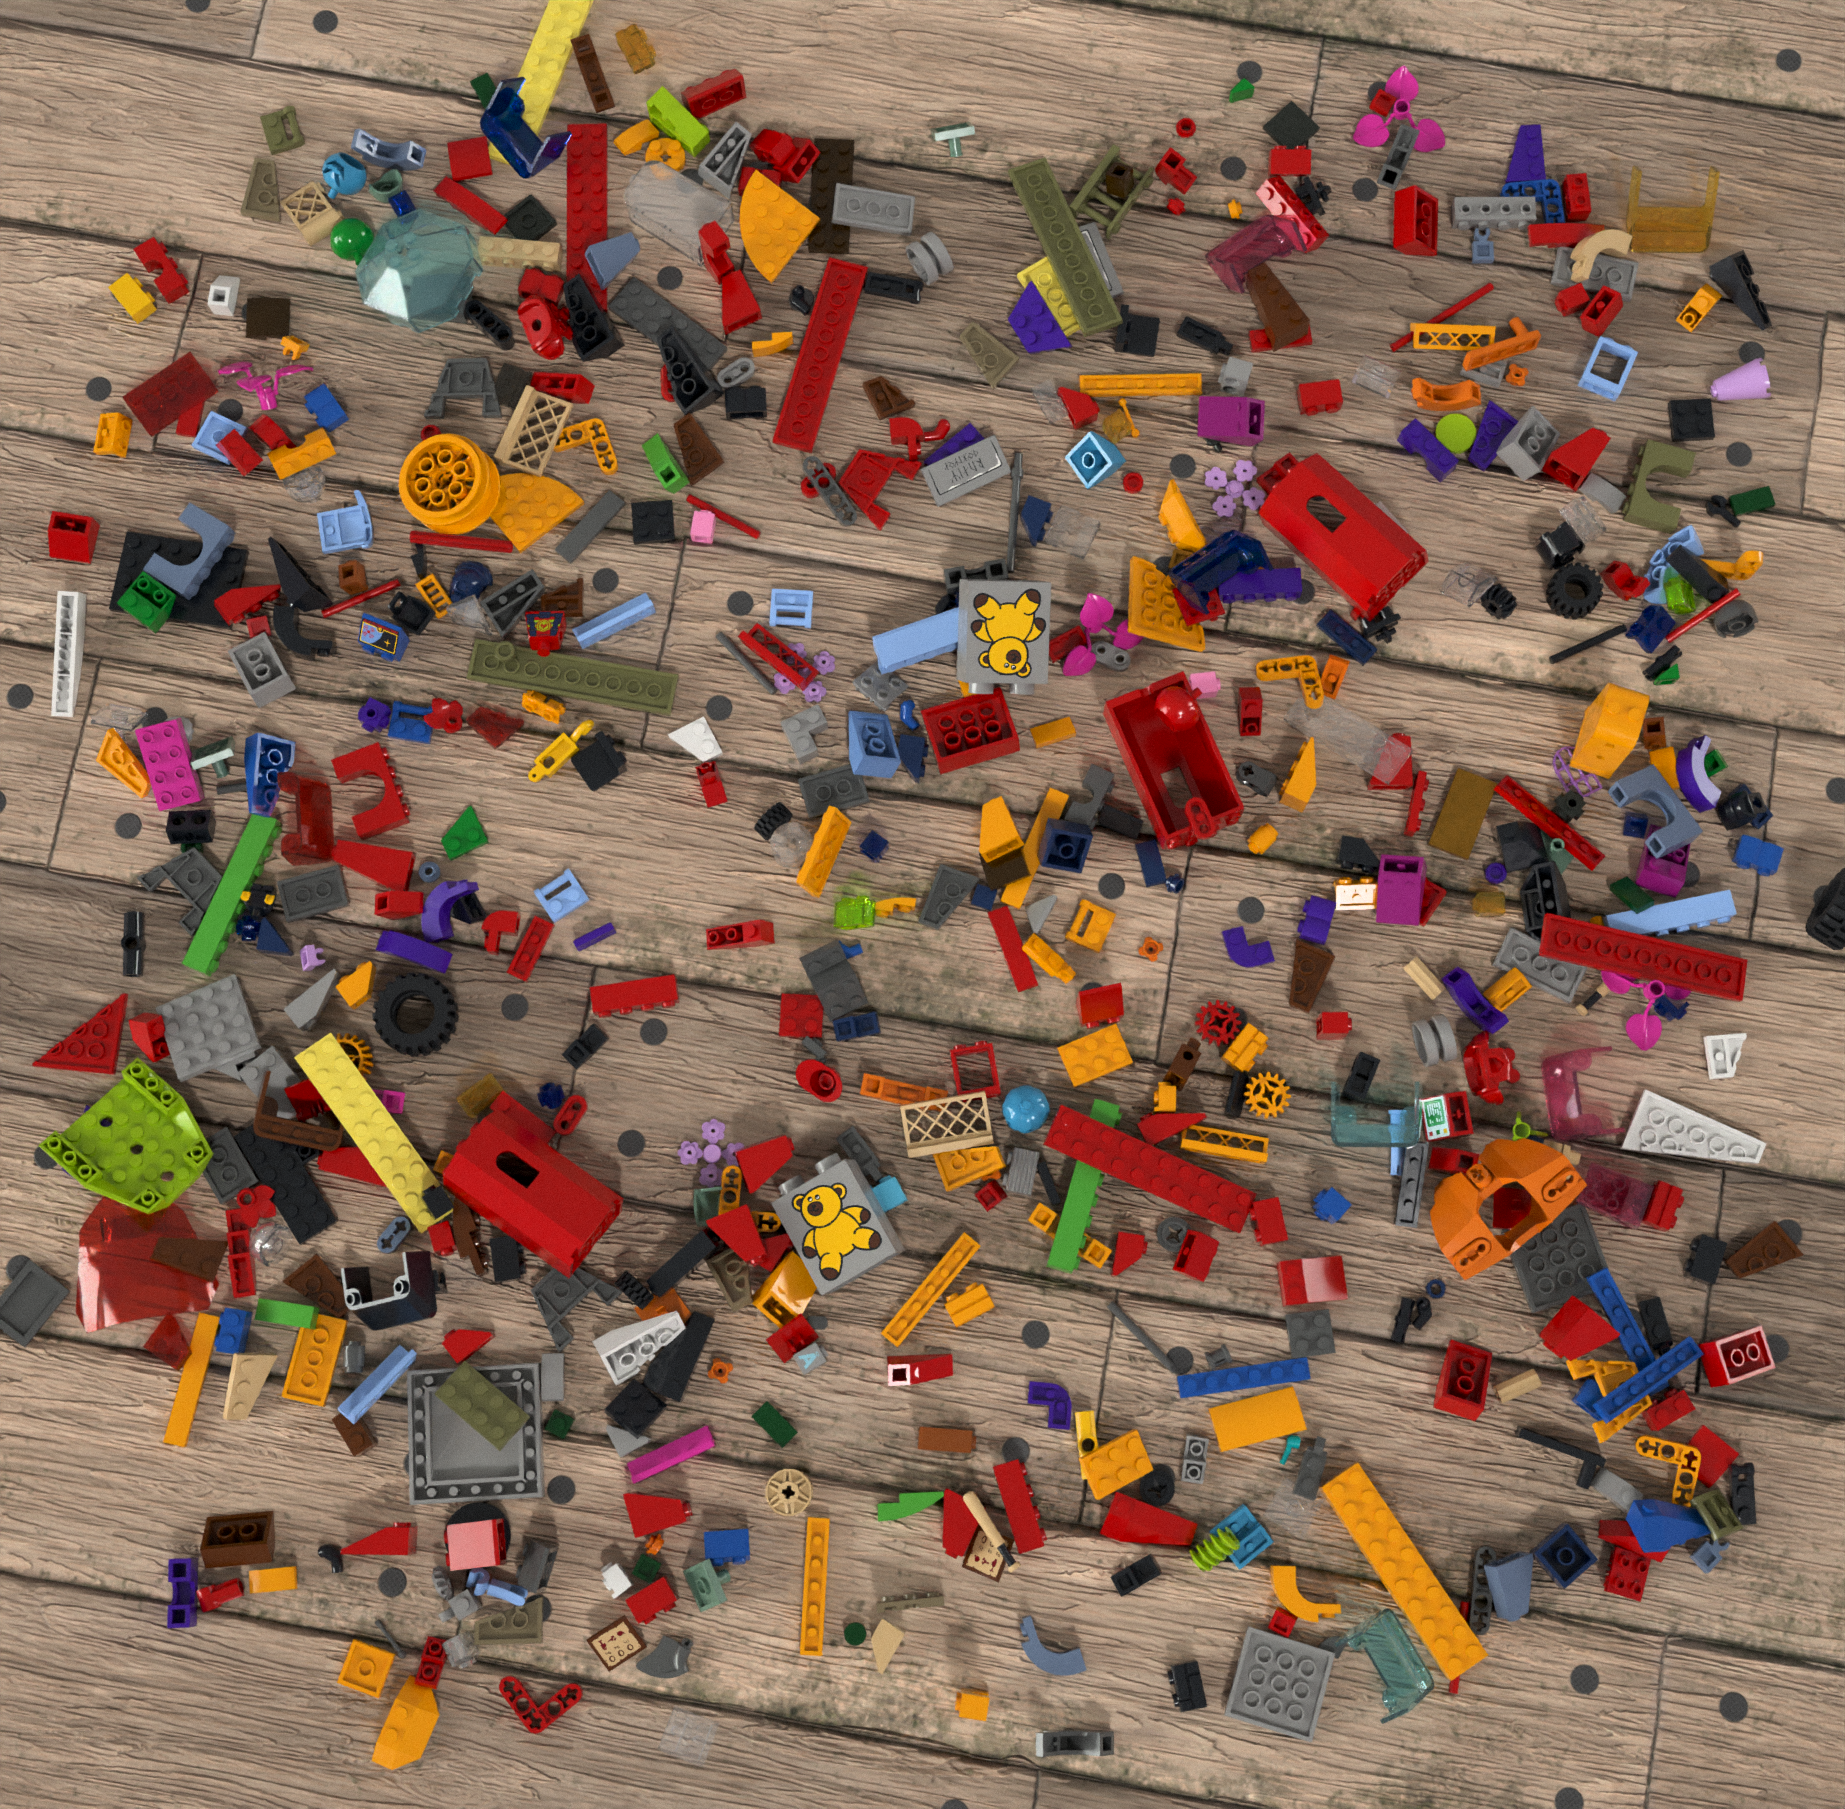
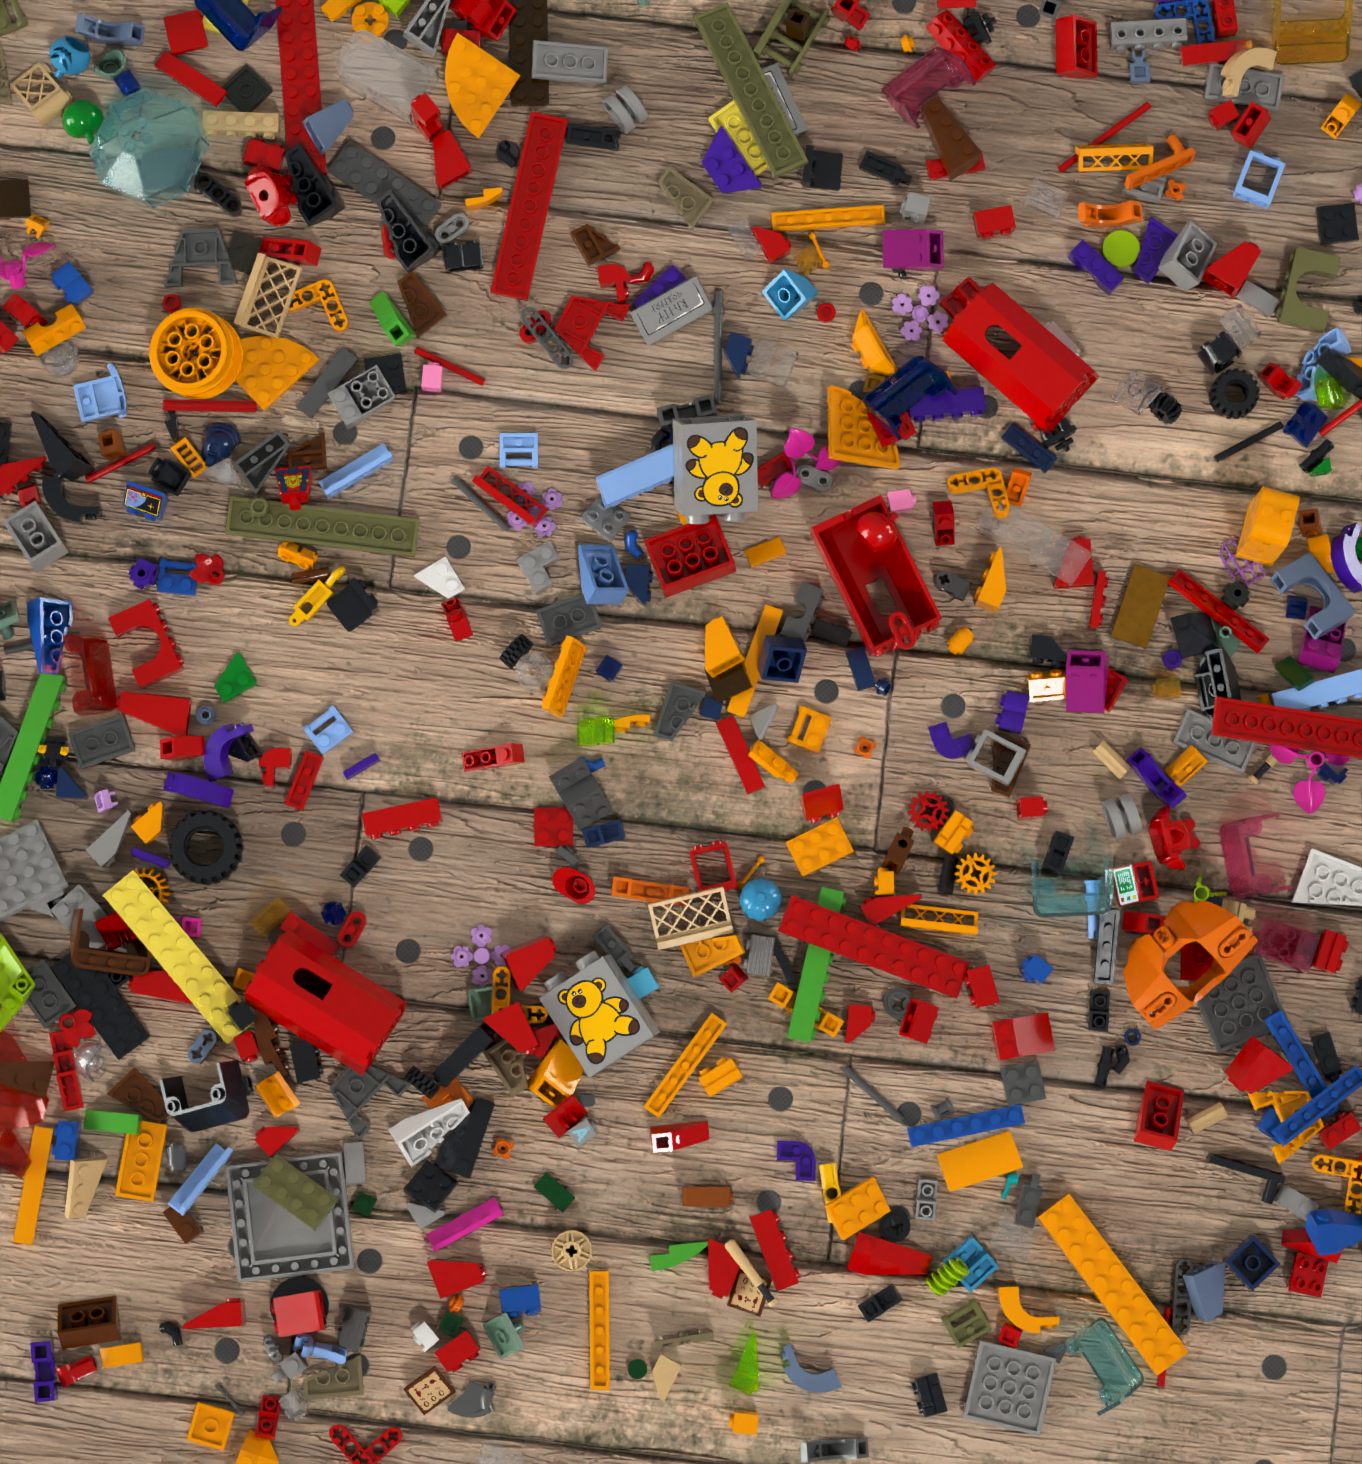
camera: 10 degrees left, 5 degrees up
(354, 1023) = (150, 858): none -> dark purple tile
(471, 1294) = (277, 1094): none -> light orange bracket
(493, 726) = (253, 577): clear red wing -> none
(555, 728) = (311, 575): none -> reddish brown axle
(625, 542) = (361, 397): none -> light grey slope
(980, 1643) = (746, 1372): none -> clear neon green slope
(1028, 1066) = (760, 860): none -> light orange hinge
(1237, 1611) = (970, 1328): none -> olive plate
(1316, 977) = (1013, 767): none -> light grey window
(1399, 1256) = (1099, 1010): none -> black slope

